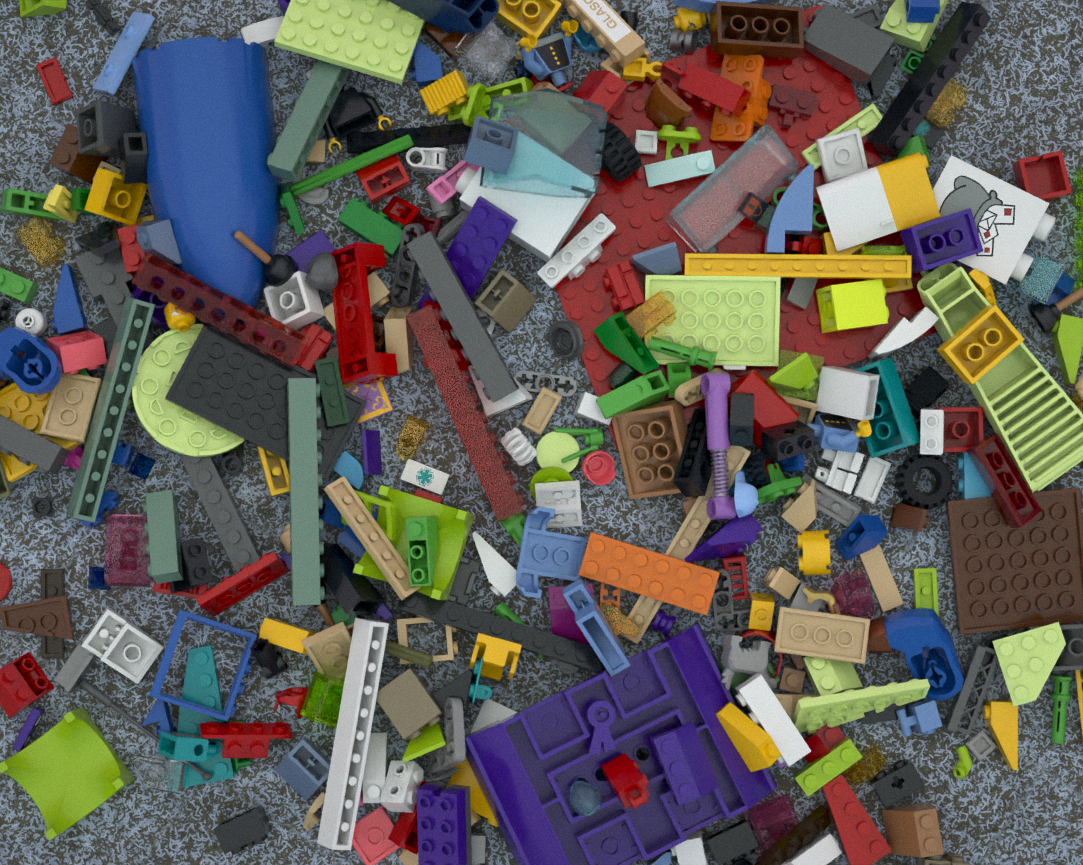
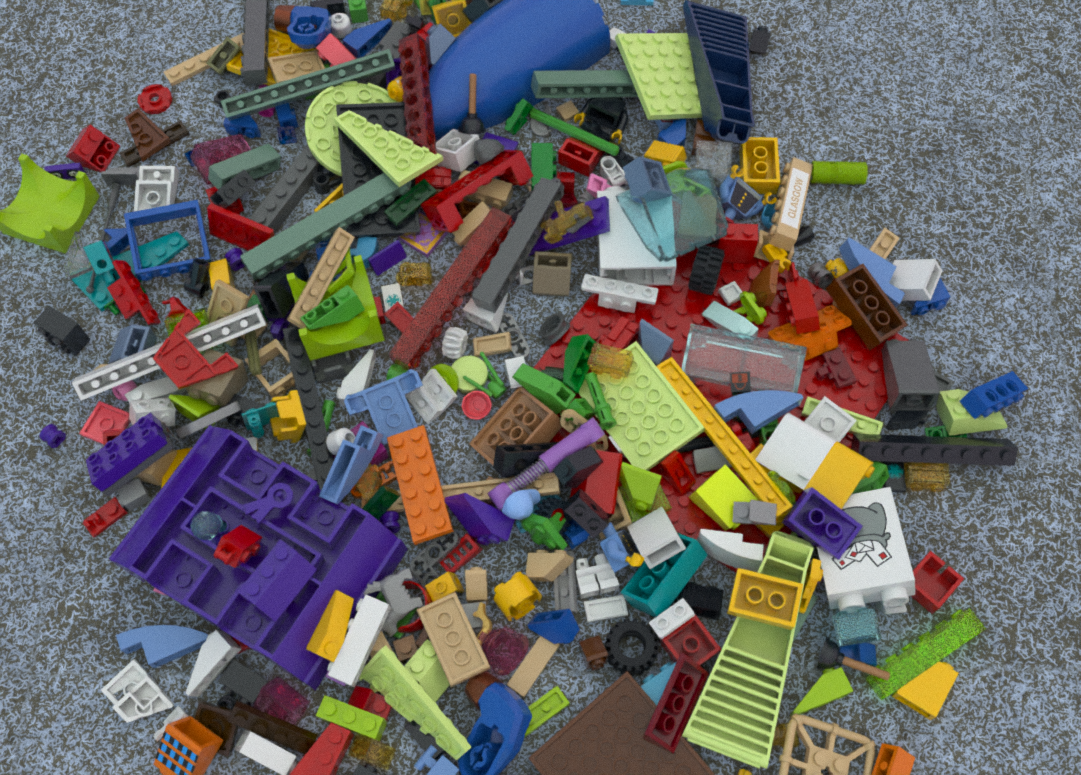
camera: 60 degrees right, 20 degrees down
(268, 606) = (233, 257): none -> dark purple wheel
(270, 378) = (388, 150): none -> yellowish green wing
(380, 728) = (184, 362): none -> red wing
(456, 481) = (399, 317): none -> red tile
(480, 252) = (567, 221): none -> clear yellow piece
(560, 622) = (336, 437): none -> white head
(647, 617) = (381, 501): none -> dark green plate
(797, 328) = (677, 472): none -> red slope
(895, 293) = (754, 513): none -> light grey slope

